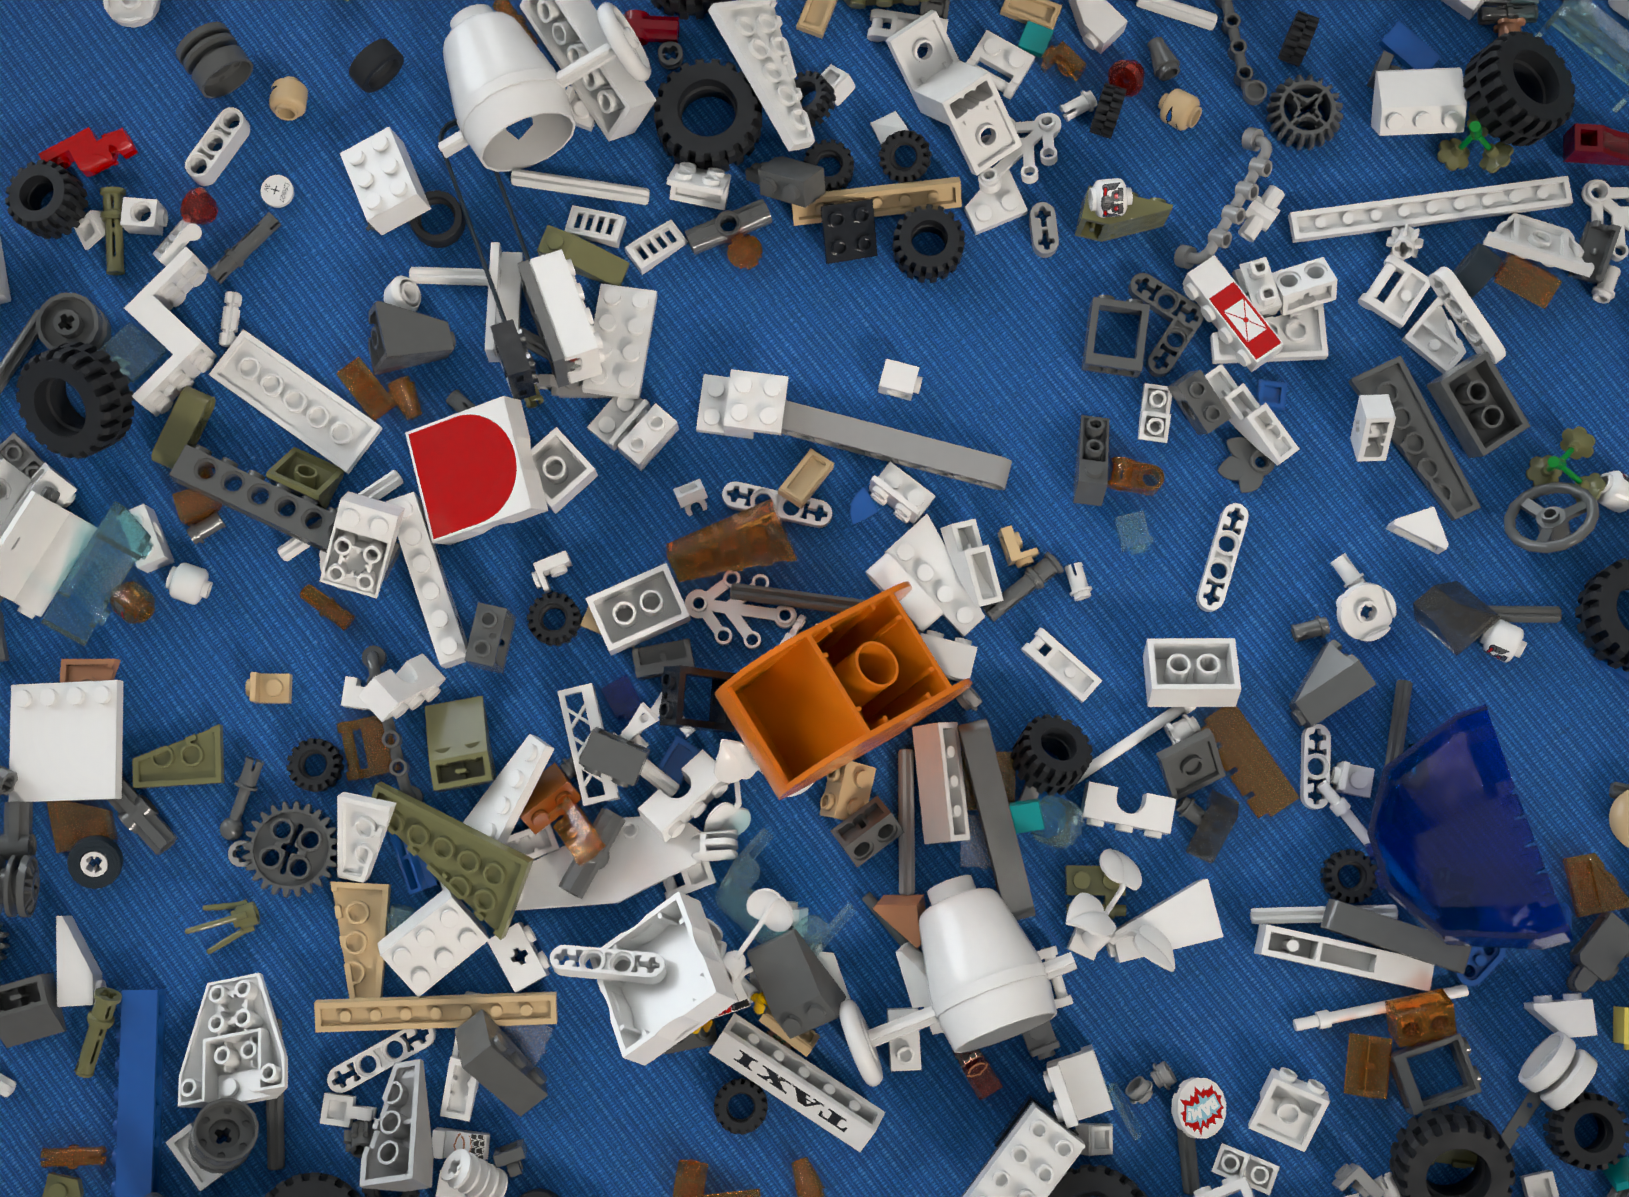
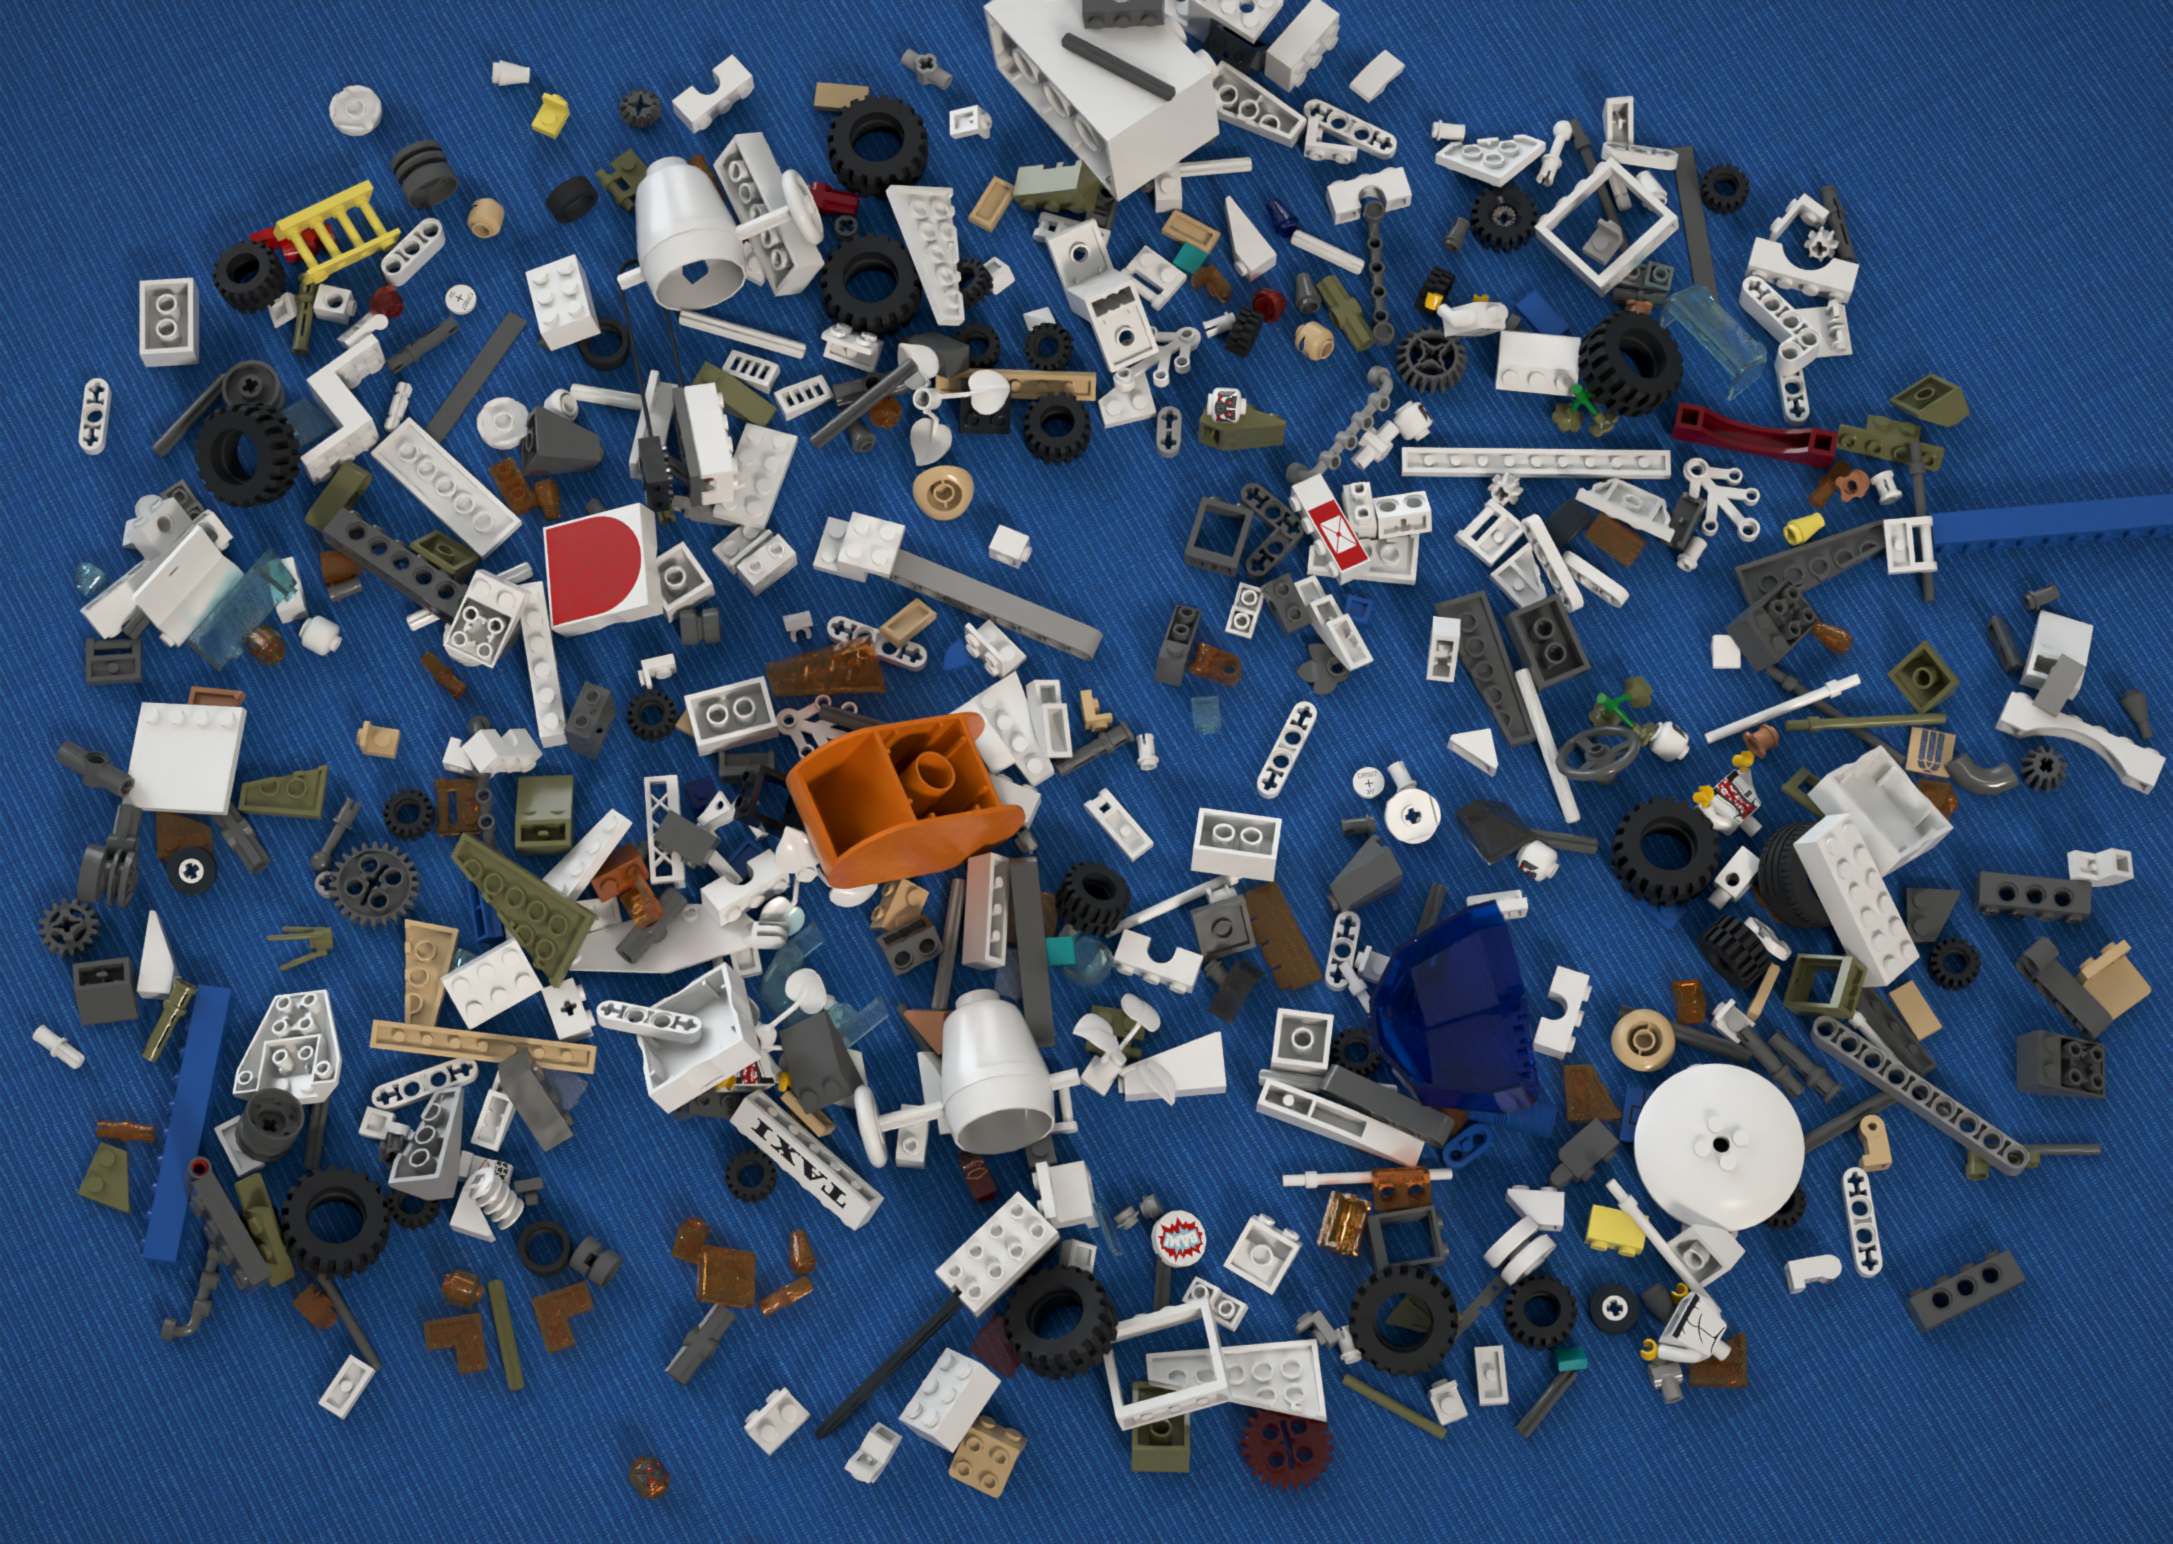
camera: 10 degrees right, 10 degrees down
(127, 110) = (336, 207): none -> light yellow fence
(306, 274) = (475, 377): none -> dark grey piece
(344, 320) = (503, 423): none -> white tile
(360, 834) = (440, 878): white wing -> none
(431, 24) = (629, 170): none -> olive plate
(589, 514) = (700, 626): none -> dark grey wheel
(723, 246) = (864, 403): none -> dark grey axle
(723, 282) = (860, 437): none -> dark grey cone
(794, 273) = (928, 437): none -> white plant
(820, 331) = (943, 492): none -> tan hat
(1207, 74) = (1345, 313): none -> olive piece
(1293, 876) = (1302, 1042): none -> white brick
(1296, 182) = (1412, 421): none -> white head
(1312, 580) = (1368, 782): none -> white piece
(1347, 63) = (1469, 320): none -> white torso
(1468, 695) = (1510, 903): none -> white bracket
(1492, 514) = (1547, 745): none -> white axle
(1514, 328) = (1595, 580): none -> white beam
(1561, 778) = (1569, 990): none -> white arch

